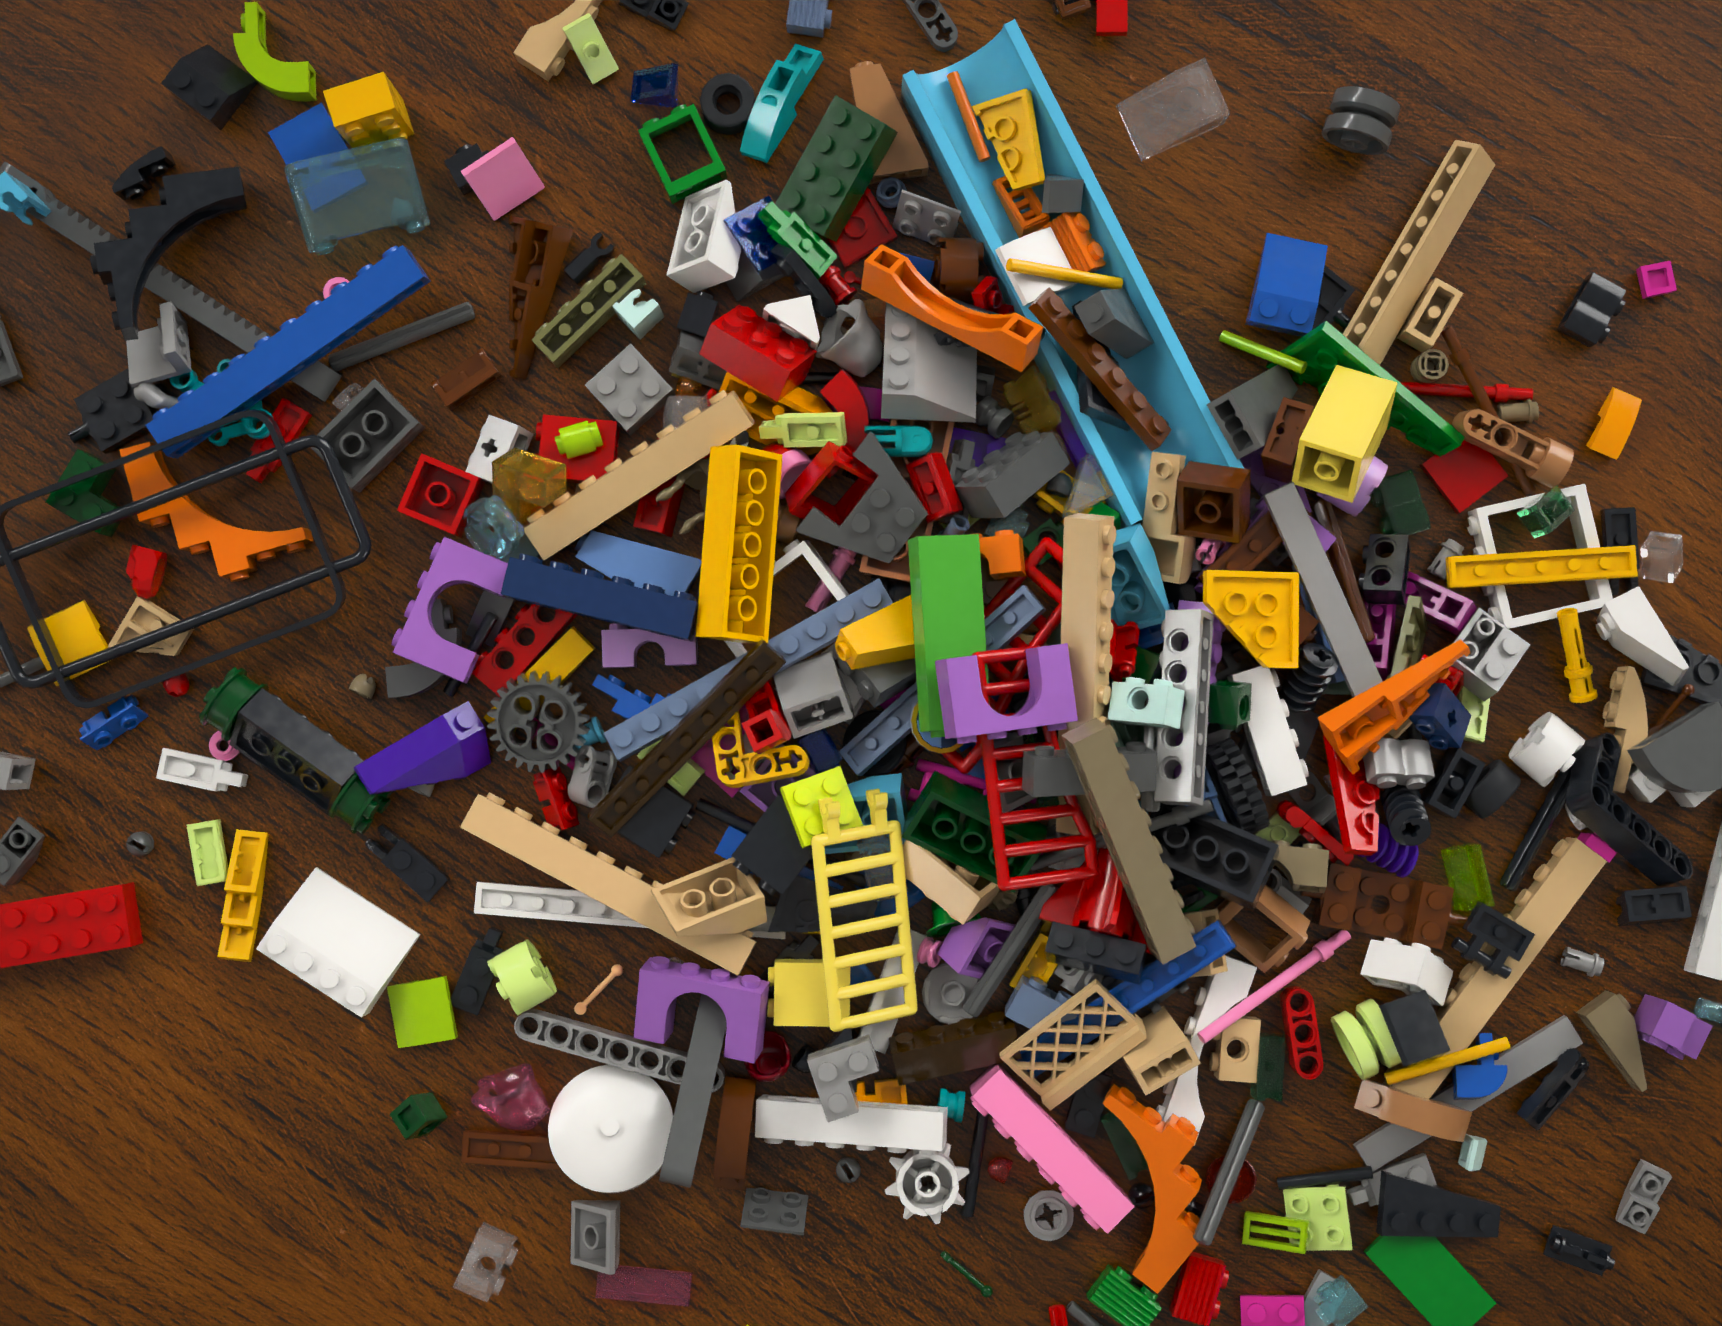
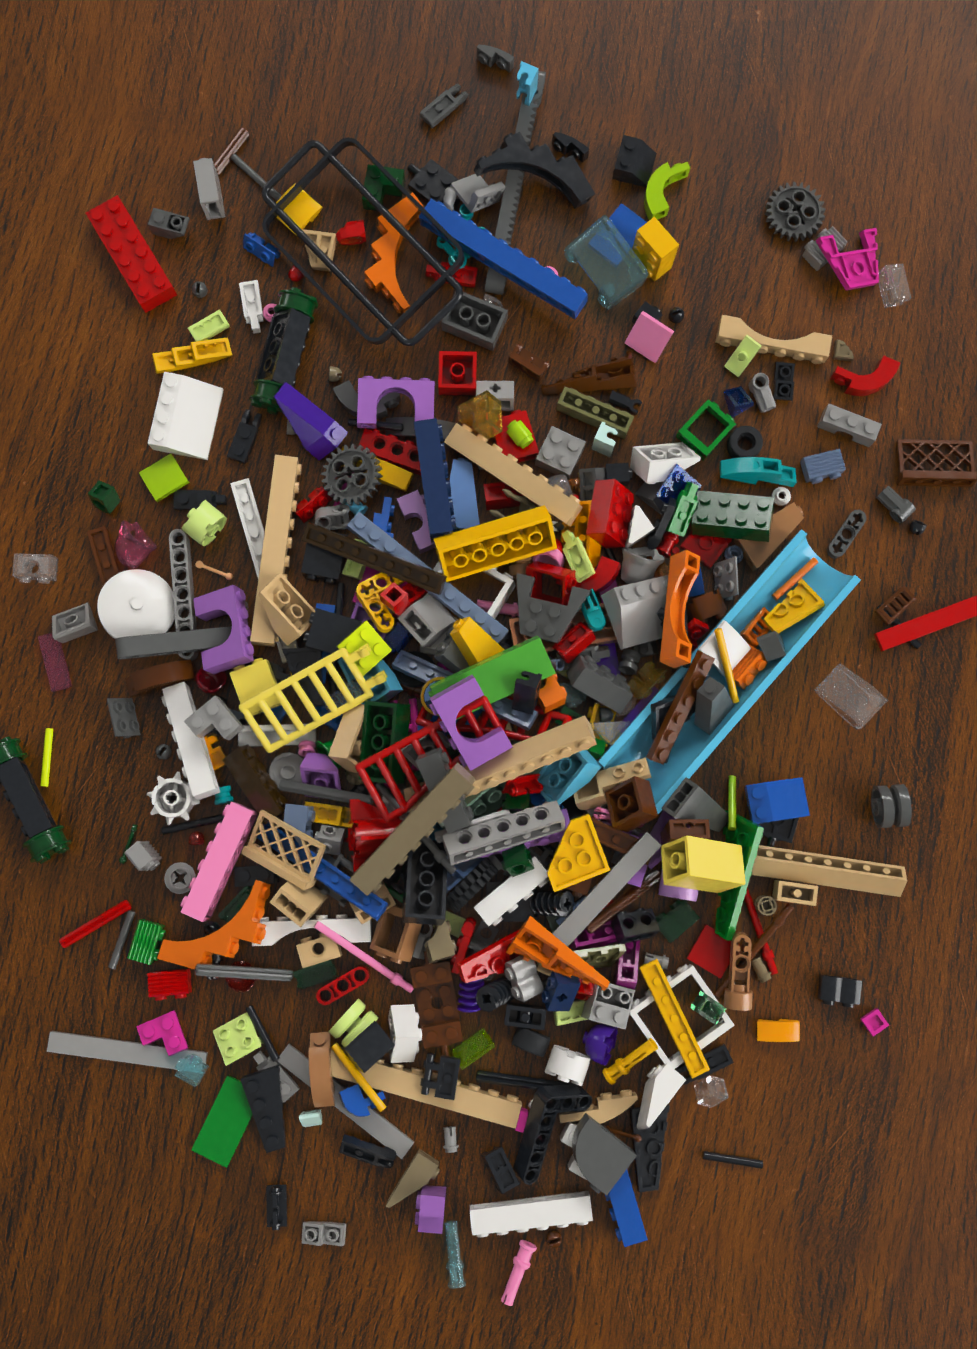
camera: 70 degrees right, 5 degrees down
(401, 336) = (538, 318): dark grey axle -> none
(488, 122) = (678, 317): none -> black hinge
(494, 513) = (451, 414): clear light blue plate -> none
(664, 43) = (762, 394): none -> light grey piece
(830, 92) = (778, 501): none -> white plate
(992, 589) = (526, 692): none -> black hinge
(998, 1258) = (143, 856): none -> light grey brick
(1096, 952) = (342, 840): black brick -> none
(1163, 706) = (496, 808): light aqua brick -> none
(1279, 1220) = (223, 1032): lime tile -> none
(1533, 690) = (600, 1042): none -> dark purple cylinder

